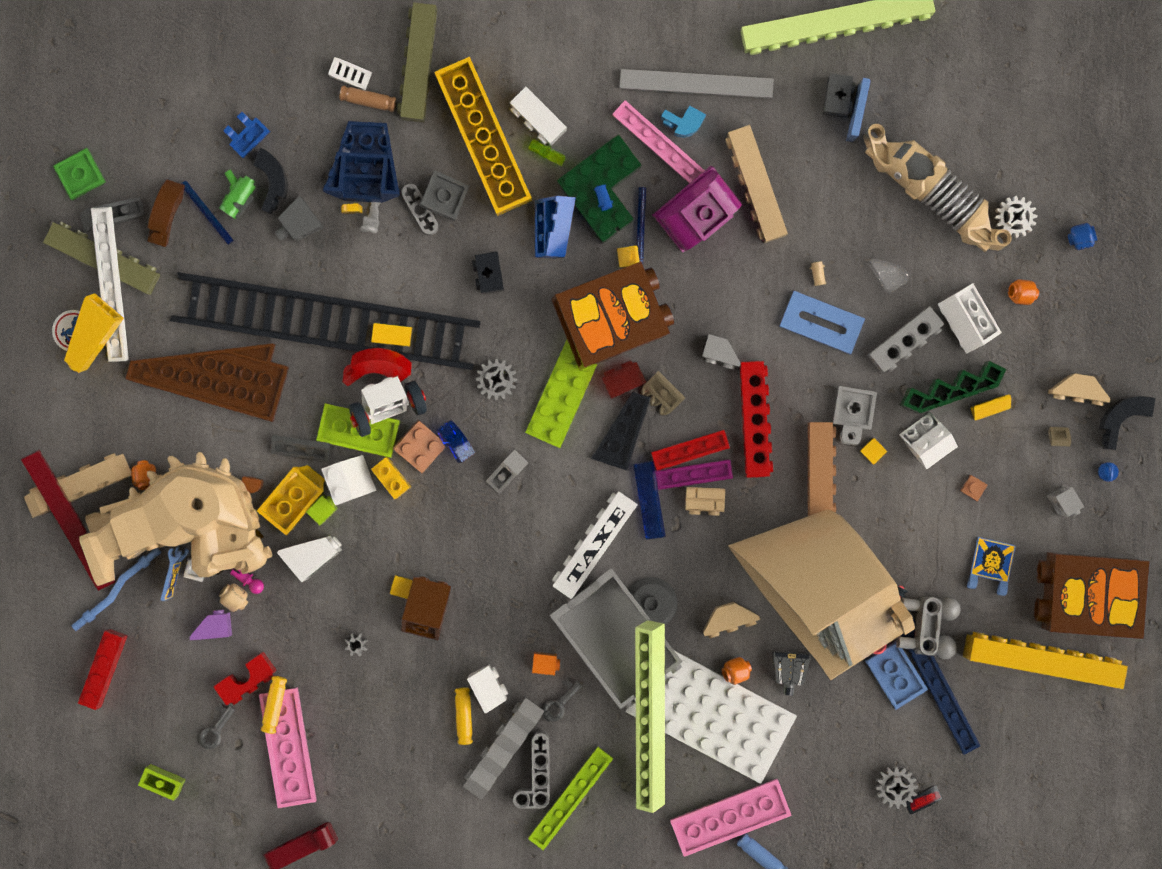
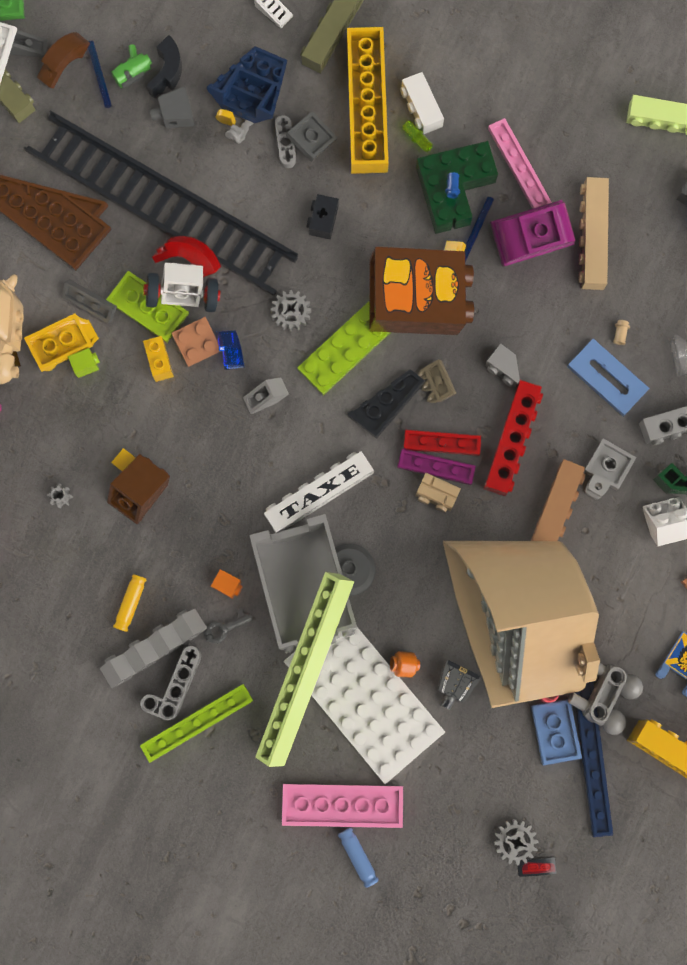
camera: 25 degrees right, 10 degrees down
(249, 137) = (162, 26): blue plate -> none
(252, 484) = (32, 316): dark orange brick -> none
(310, 556) = (54, 396): white slope -> none
(348, 480) = (118, 343): white slope -> none
(367, 98) = (279, 33): medium nougat axle -> none
(391, 334) = (214, 235): yellow tile -> none
(487, 688) = (163, 584): white slope -> none
(552, 226) = (397, 195): blue wedge -> none
(623, 380) = (406, 355): clear red brick -> none
(649, 500) = (386, 473): clear blue tile -> none
(687, 125) = (550, 160): dark azure brick -> none
(696, 83) = (573, 130): light grey tile -> none
(728, 618) = (417, 611): tan slope -> none
(873, 451) = (612, 511): yellow tile -> none

